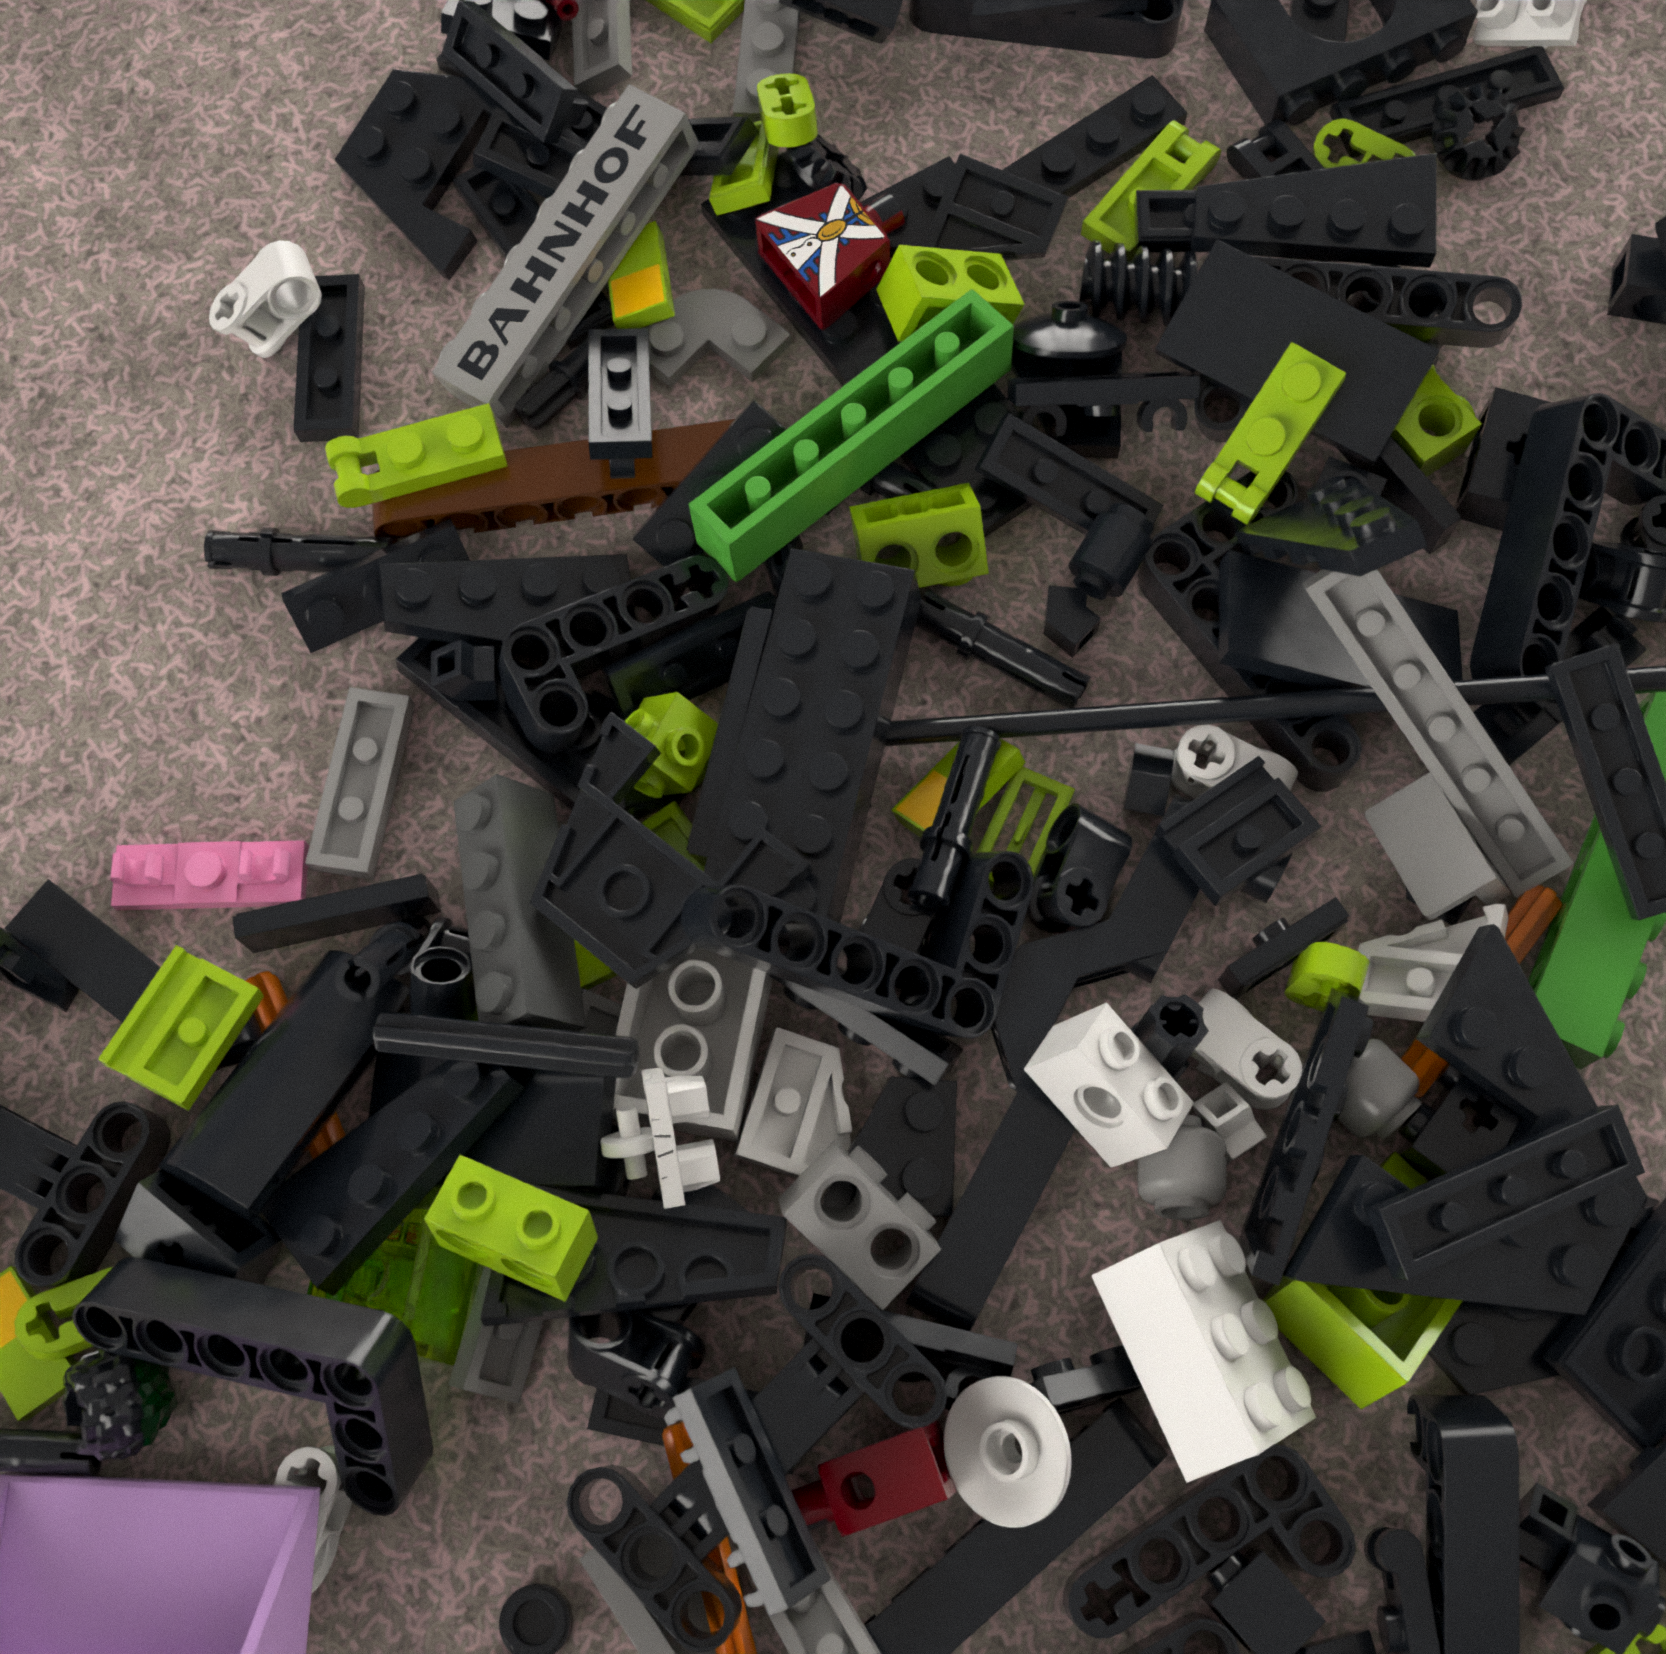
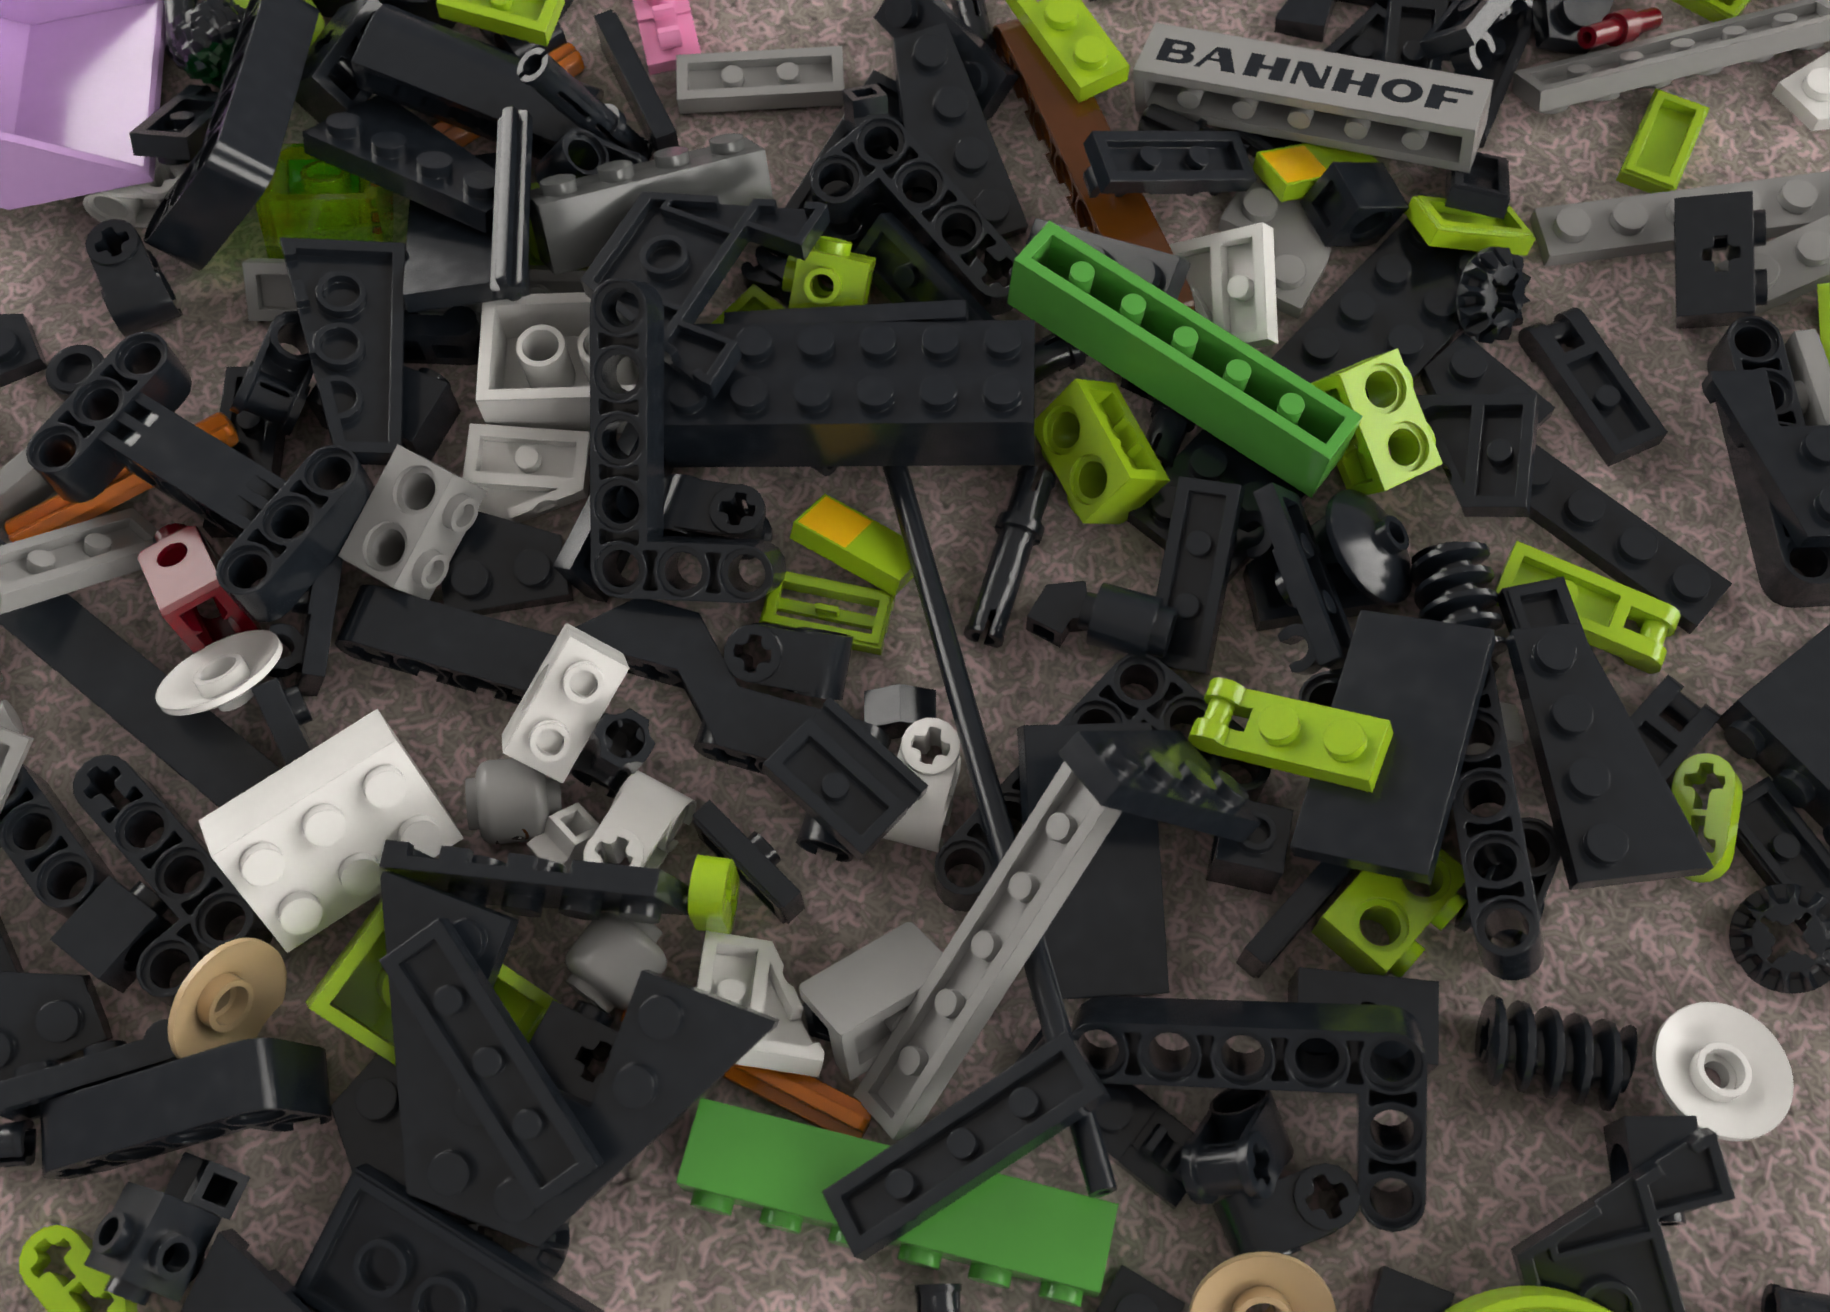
camera: 75 degrees right, 5 degrees down
(240, 1438) = (177, 128): none -> black plate
(442, 1538) = (129, 278): none -> black piece
(512, 1227) = (347, 233): lime brick -> none
(678, 1166) = (448, 335): white hips -> none
(695, 254) = (1354, 204): none -> black brick
(749, 1492) = (144, 448): black plate -> none
(750, 367) = (1235, 281): none -> white wing
(787, 110) = (1534, 235): lime beam -> none
(829, 248) = (1389, 302): torso -> none
(931, 121) = (1593, 386): none -> black plate
(948, 838) = (807, 527): black pin -> none
(1363, 1491) = (227, 996): none -> tan dish
(1556, 324) = (1555, 1050): none -> black piece
(1584, 210) = (1745, 1055): none -> white dish

